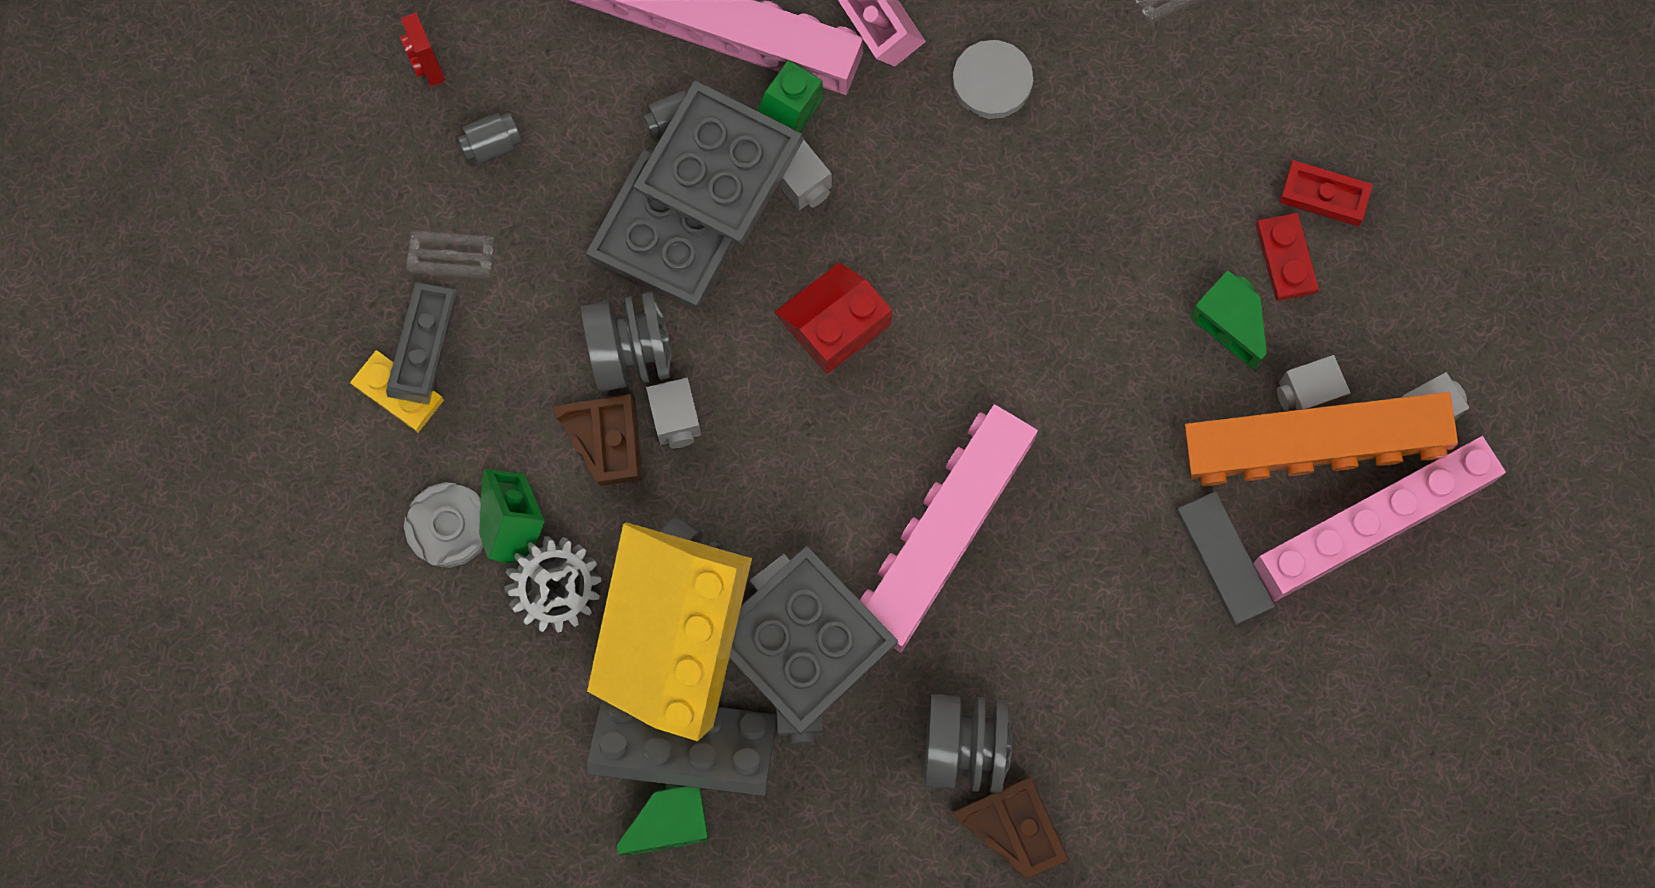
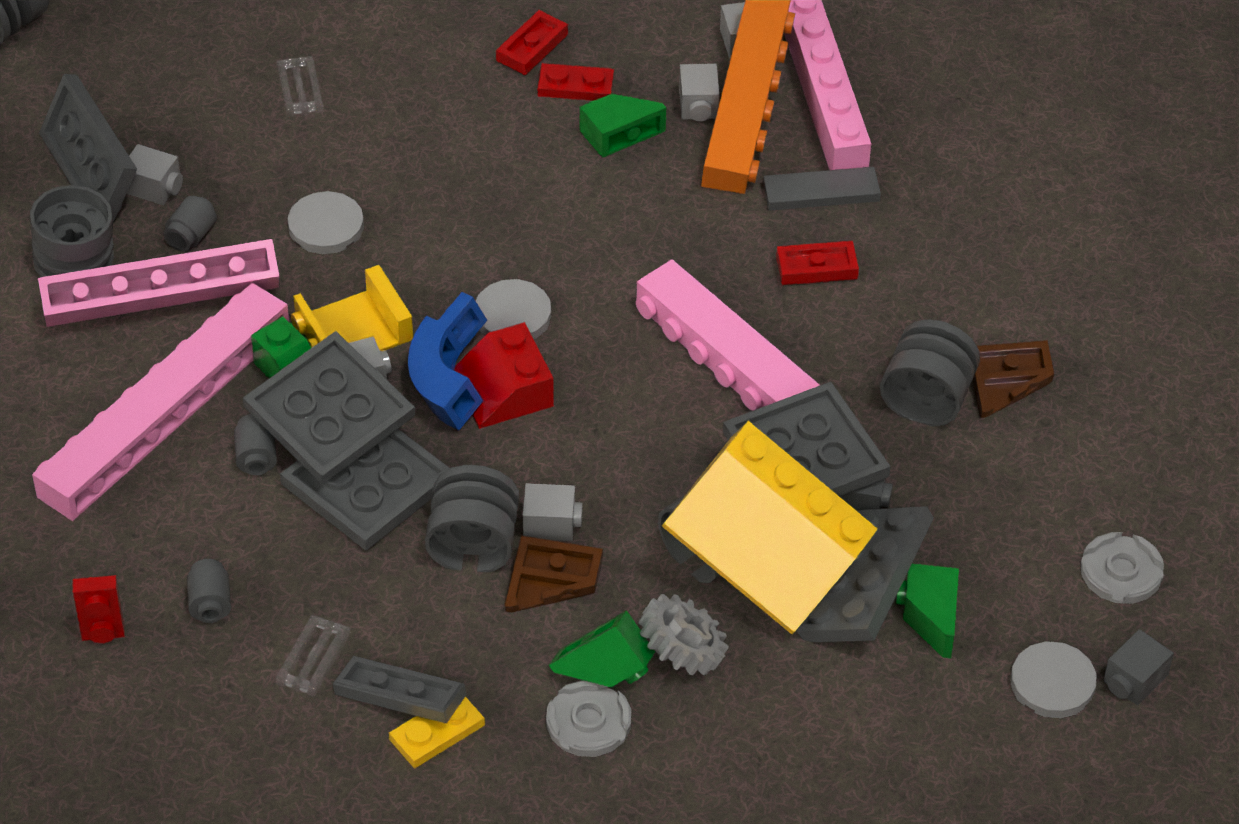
camera: 75 degrees left, 25 degrees down
(820, 243) = (434, 357): none -> blue arch
(863, 148) = (364, 315): none -> yellow panel
(934, 295) = (514, 303): none -> light grey tile
(1107, 583) = (817, 262): none -> red plate

